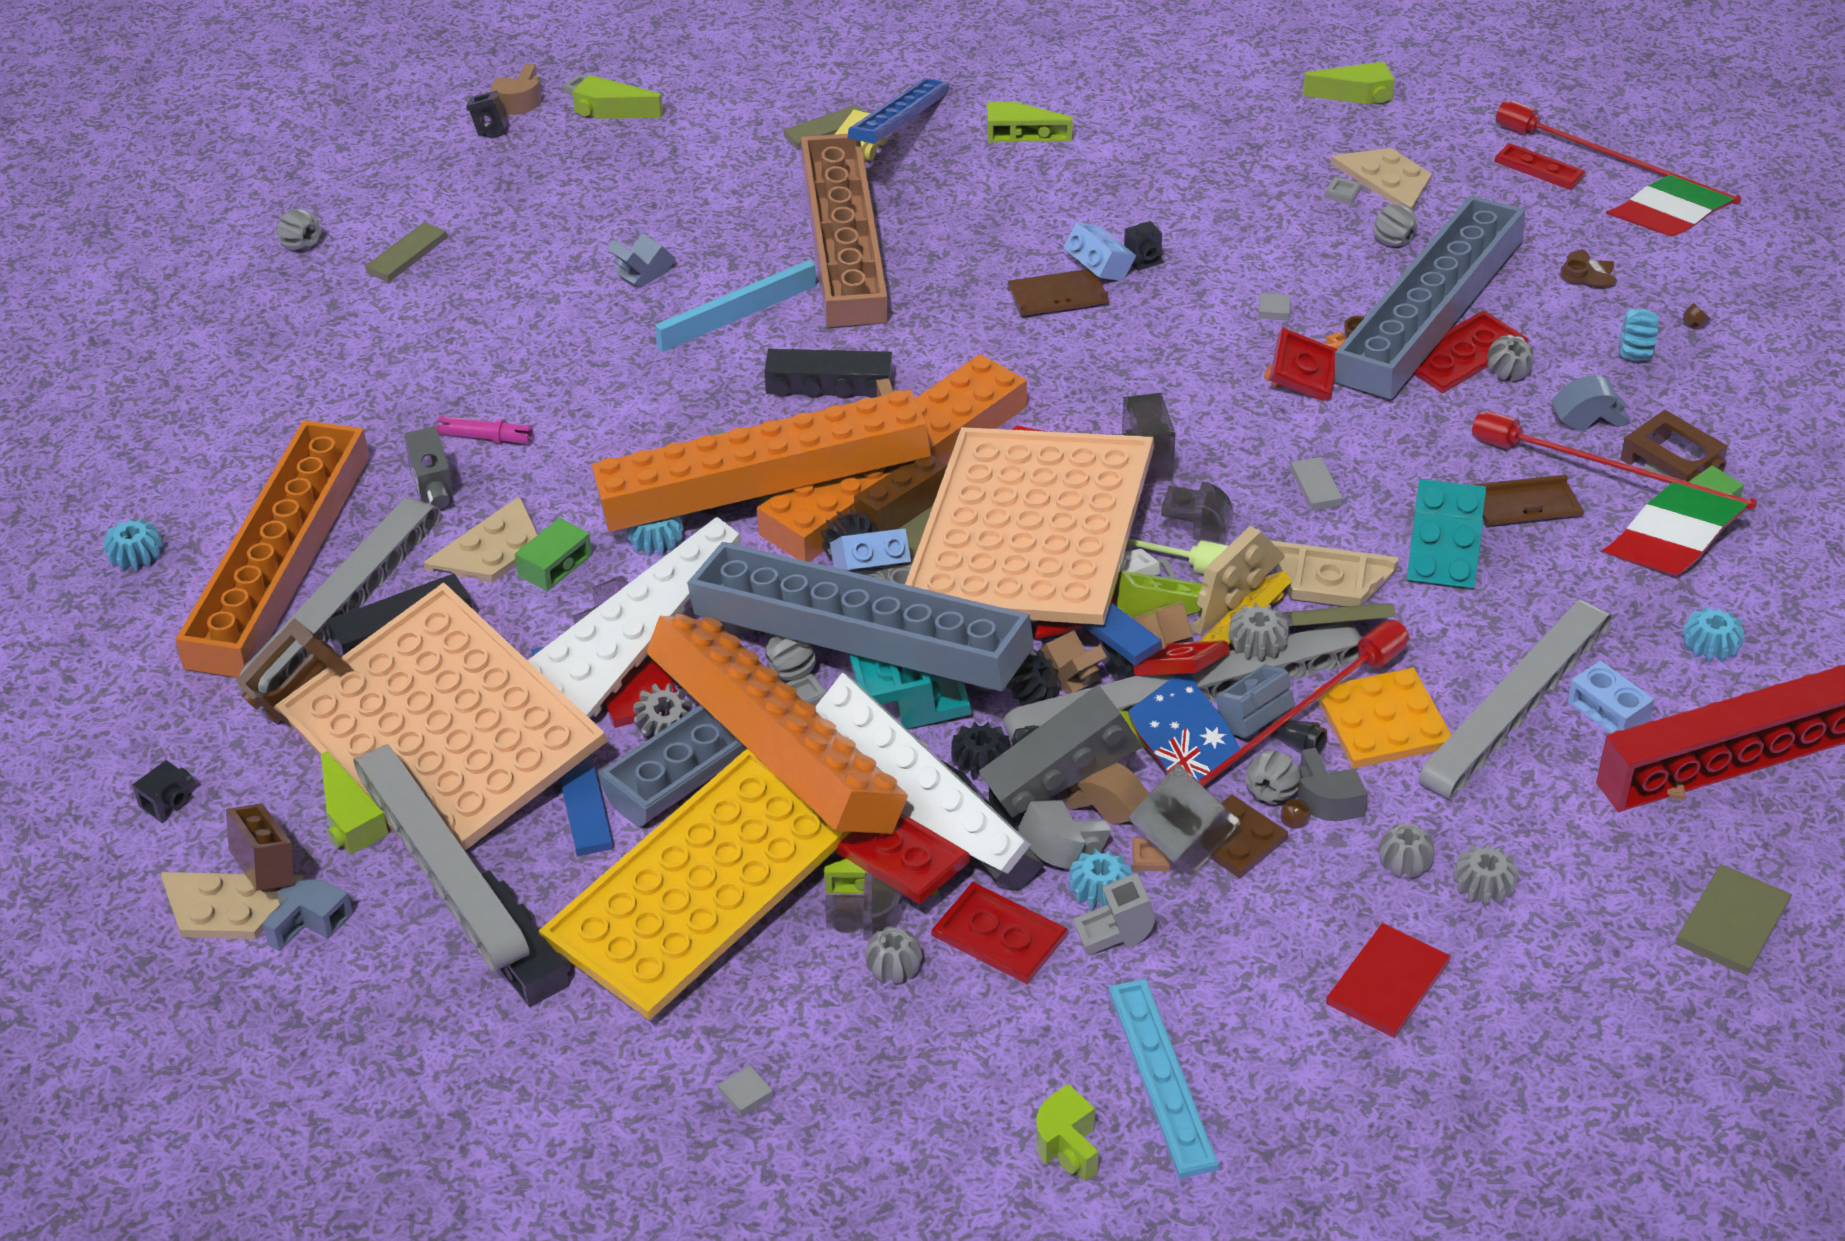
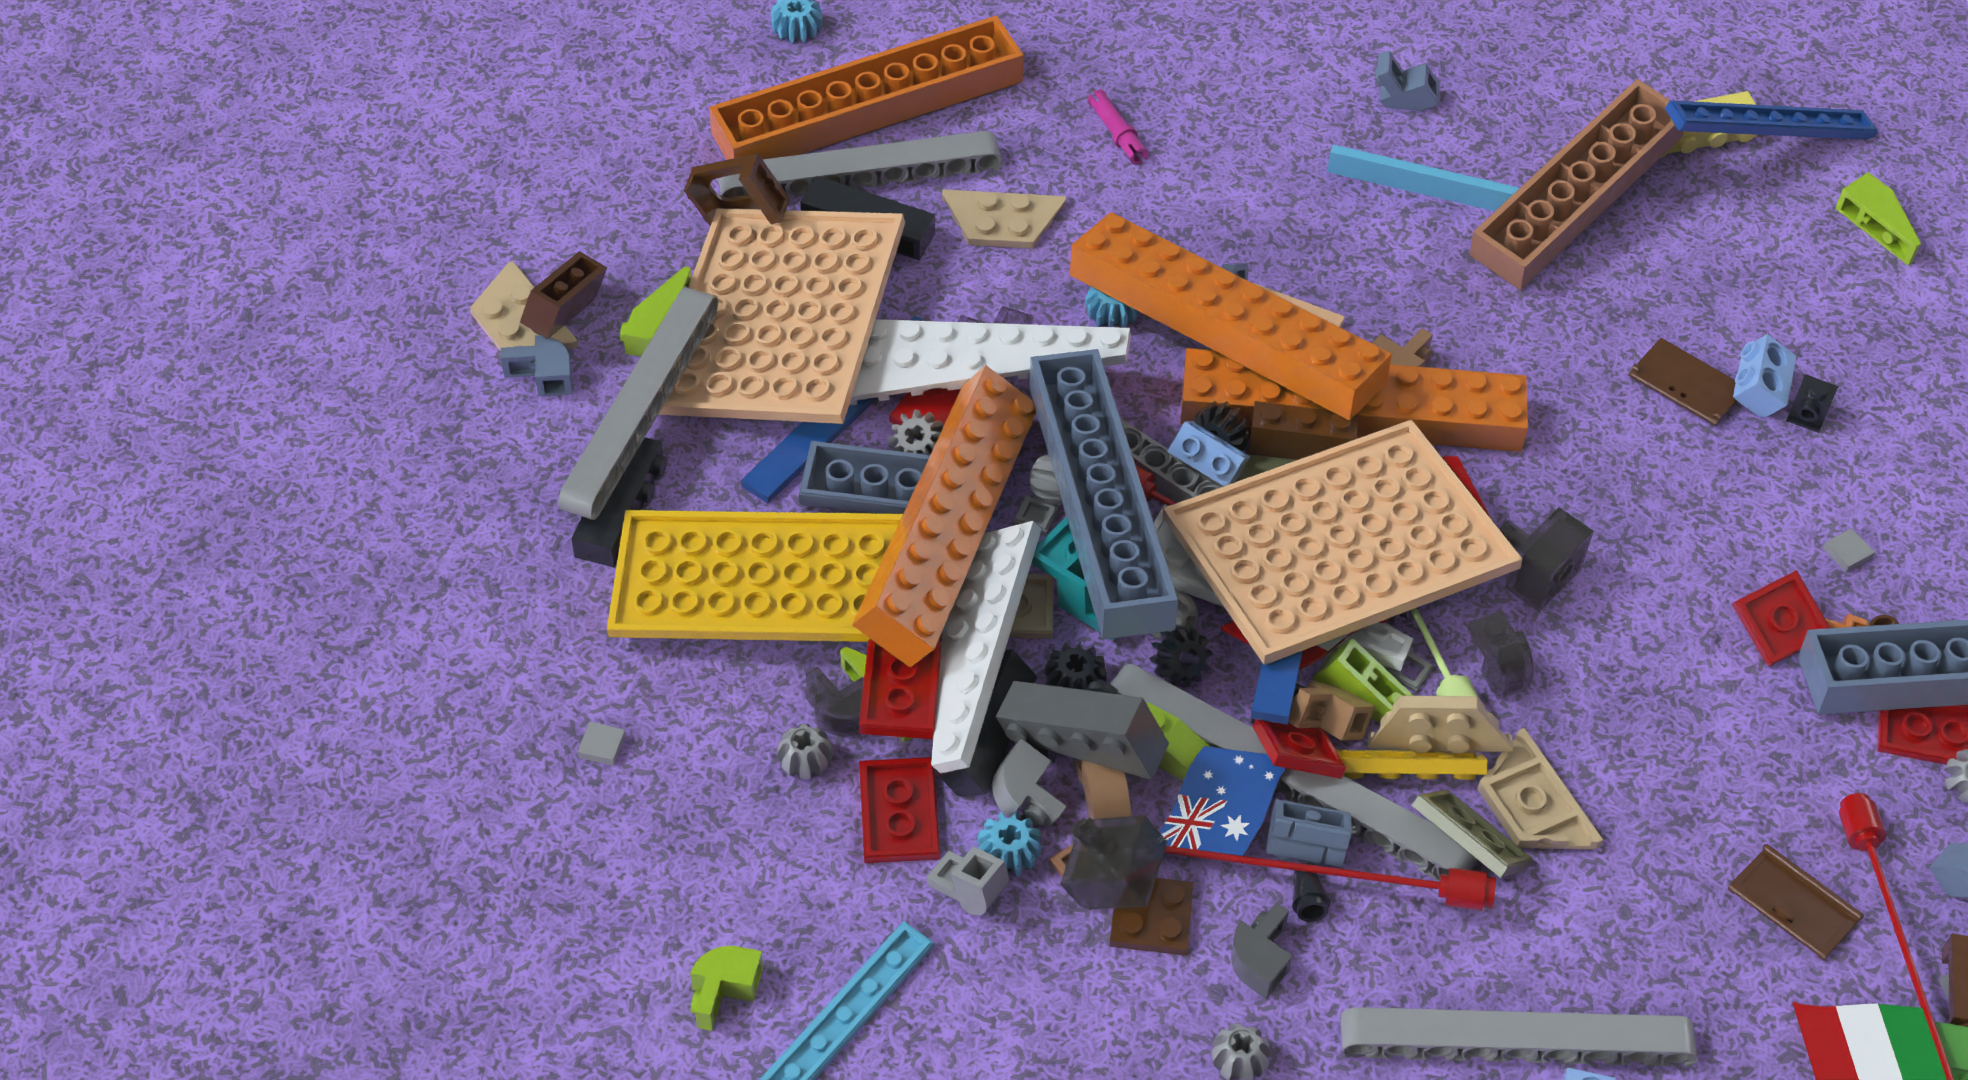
camera: 50 degrees right, 10 degrees up
(163, 790) = (582, 206): black brick -> none
(434, 480) = (1032, 122): dark grey torso -> none
(553, 554) = (1023, 259): bright green brick -> none
(822, 125) = (1707, 85): olive tile -> none
(826, 372) = (1407, 291): black brick -> none
(1074, 664) = (1229, 673): medium nougat brick -> none
(1258, 631) = (1378, 783): light grey gear -> none
(1273, 777) = (1231, 898): light grey piece -> none
(1295, 814) = (1209, 944): reddish brown hinge -> none
(1316, 483) = (1643, 721): light grey tile -> none
(1383, 717) = (1396, 945): light orange plate -> none
(1446, 533) = (1665, 858): teal bracket -> none

